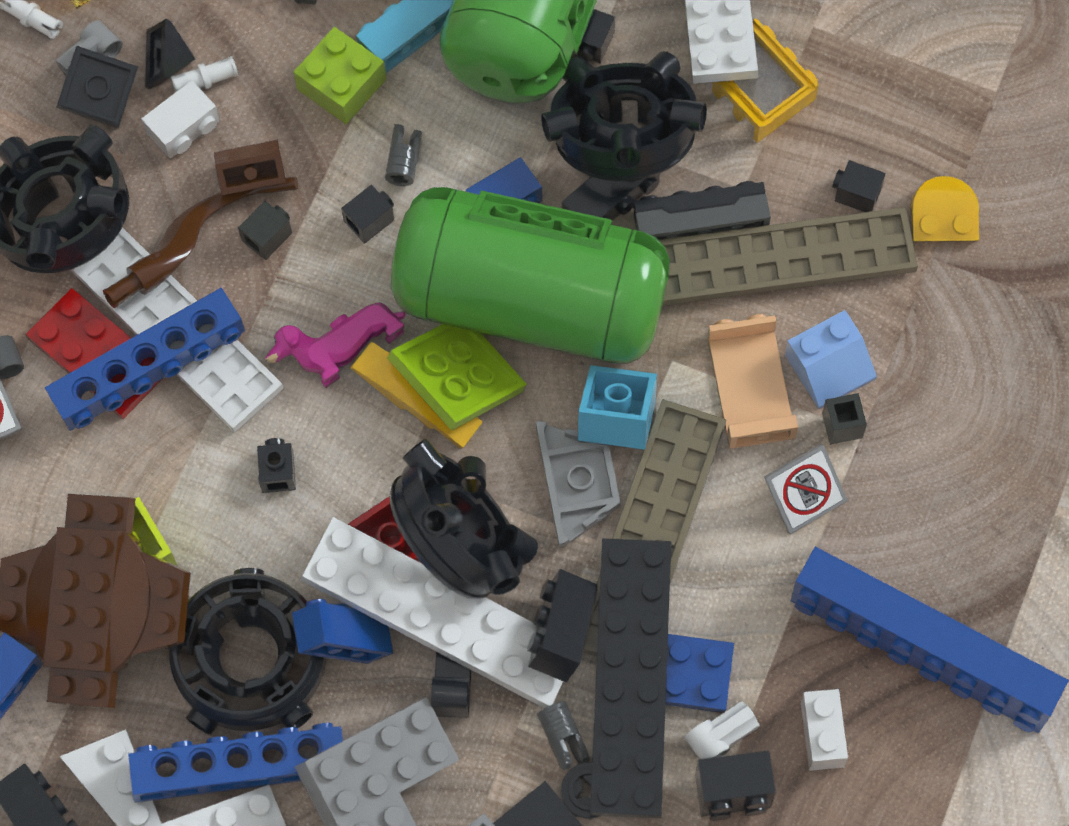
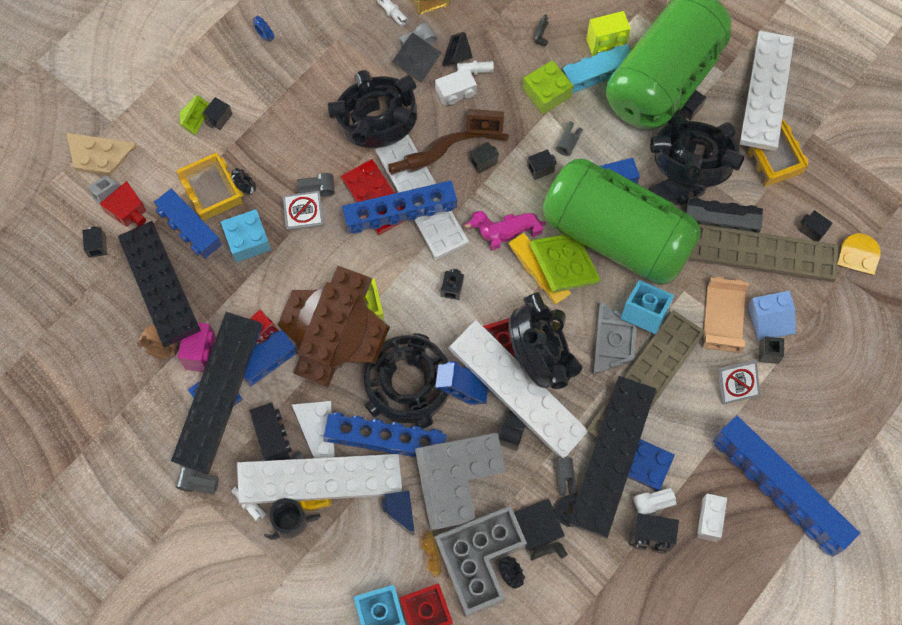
camera: 15 degrees right, 0 degrees up
(561, 625) = (582, 416): black brick -> none

